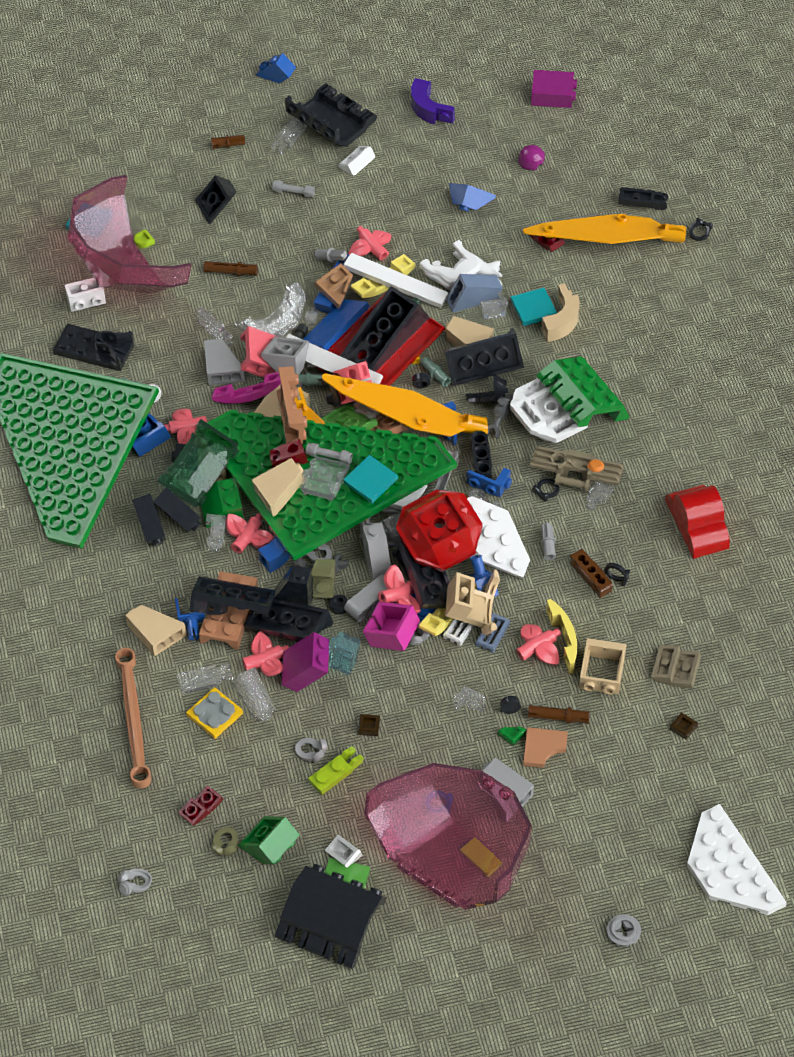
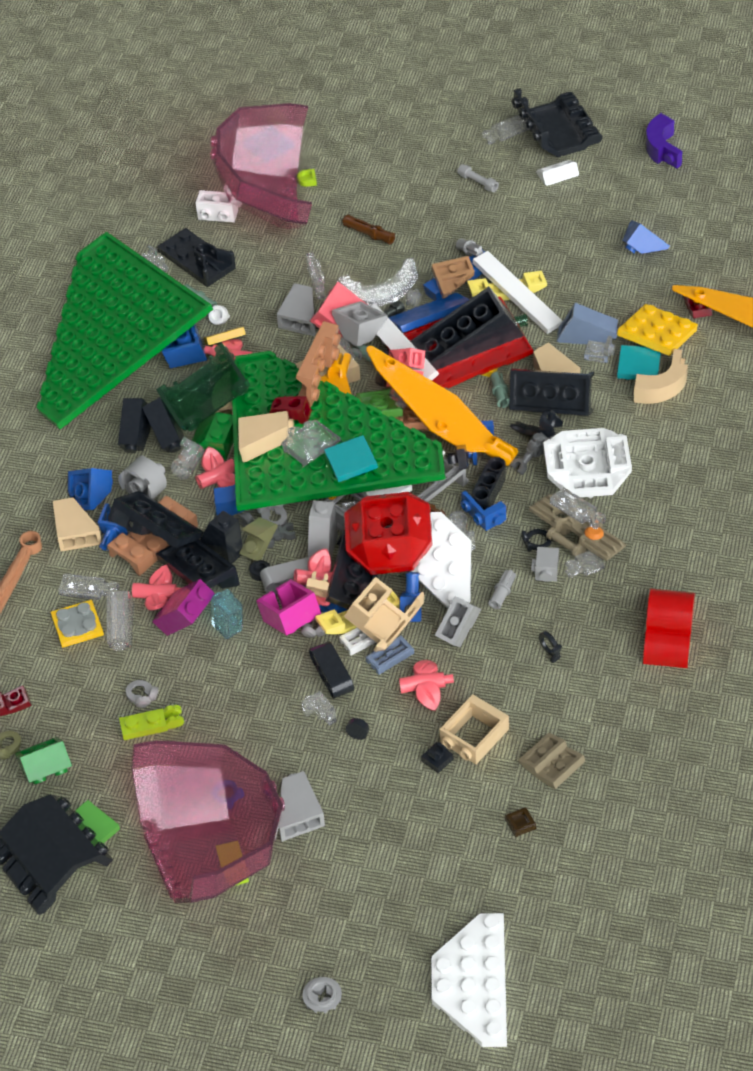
camera: 30 degrees right, 5 degrees down
(63, 361) = (155, 258): none -> clear plate
(145, 590) = (89, 486): none -> blue slope
(171, 409) = (225, 335): none -> yellow tile
(190, 563) = (143, 476): none -> light grey brick
(215, 197) = (398, 161): black slope -> none
(227, 394) = (289, 342): dark pink slope -> none
(228, 141) = (444, 116): reddish brown axle -> none
(276, 69) = (534, 64): blue slope -> none
(314, 450) = (340, 429): light grey bar -> none
(343, 851) = (104, 800): white slope -> none
(369, 725) = (211, 693): dark brown tile -> none
(371, 243) = (518, 251): coral plant -> none
(407, 599) = (319, 587): none -> tan tile
(421, 380) = (479, 392): black tile -> none
(451, 442) = (459, 457): none -> black tile
(456, 664) = (331, 669): none -> black beam
(467, 264) = (599, 301): white animal -> none
(512, 734) = (343, 759): green tile -> none
(531, 157) = (733, 223): magenta hair -> none
(531, 272) = (657, 329): none -> yellow plate
(536, 583) = (458, 621): none -> light grey hinge
(542, 745) = (365, 780): nougat tile -> none
(559, 617) = (452, 703): light yellow slope -> none
(559, 714) = (406, 761): reddish brown pin -> none
(570, 506) = (546, 564): none -> light grey brick
(572, 450) = (577, 508): none -> clear plate
(581, 386) = (627, 453): green slope -> none
(586, 700) = (437, 757): none -> black tile
(591, 573) = (525, 635): reddish brown piece -> none

